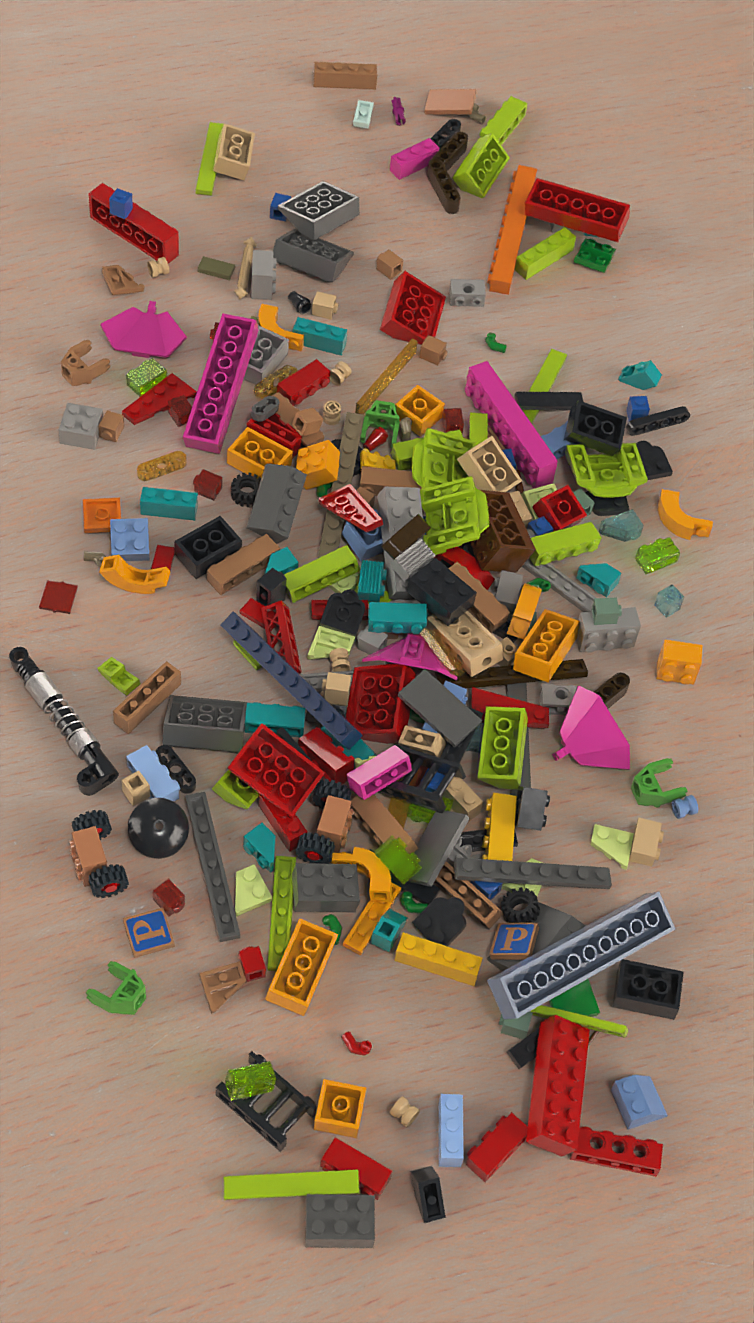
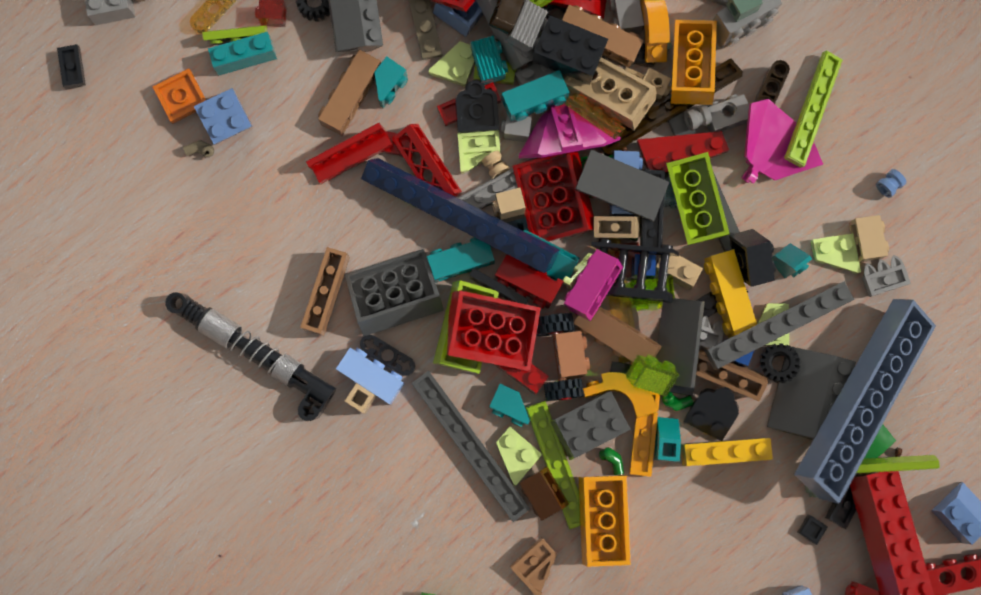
camera: 20 degrees left, 25 degrees up
(24, 462) = (71, 66): none -> black plate
(58, 597) = (181, 209): clear red piece -> none
(90, 857) = (351, 493): brick -> none
(118, 676) = (284, 275): lime slope -> none
(131, 579) = (246, 159): light orange arch -> none
(148, 932) = (441, 542): tile -> none
(150, 840) = (396, 418): black dish -> none
(153, 482) = (234, 34): none -> lime plate
(163, 557) = (267, 124): red tile -> none
(169, 897) = (446, 500): clear red brick -> none
(207, 546) = (306, 89): black brick -> none
(221, 606) = (350, 153): none -> red fence
(252, 963) = (554, 533): red brick -> none
(258, 925) = (543, 494): none -> reddish brown brick
(271, 587) = (393, 113): black brick -> none
(321, 573) = (433, 72): lime brick -> none
(360, 1048) = (685, 573): red arm -> none
(490, 1059) = (812, 529): none -> black tile
(514, 941) = (790, 403): tile -> none
(531, 689) = (697, 117): none -> light grey wheel
(565, 830) = (791, 261): none -> teal slope
(638, 723) = (813, 109): none -> lime tile
(646, 787) = (848, 178): bright green piece -> none
(647, 879) = (886, 277): none -> light grey plate
(648, 989) = (934, 399): black brick -> none
(679, 662) = (829, 23): light orange brick -> none

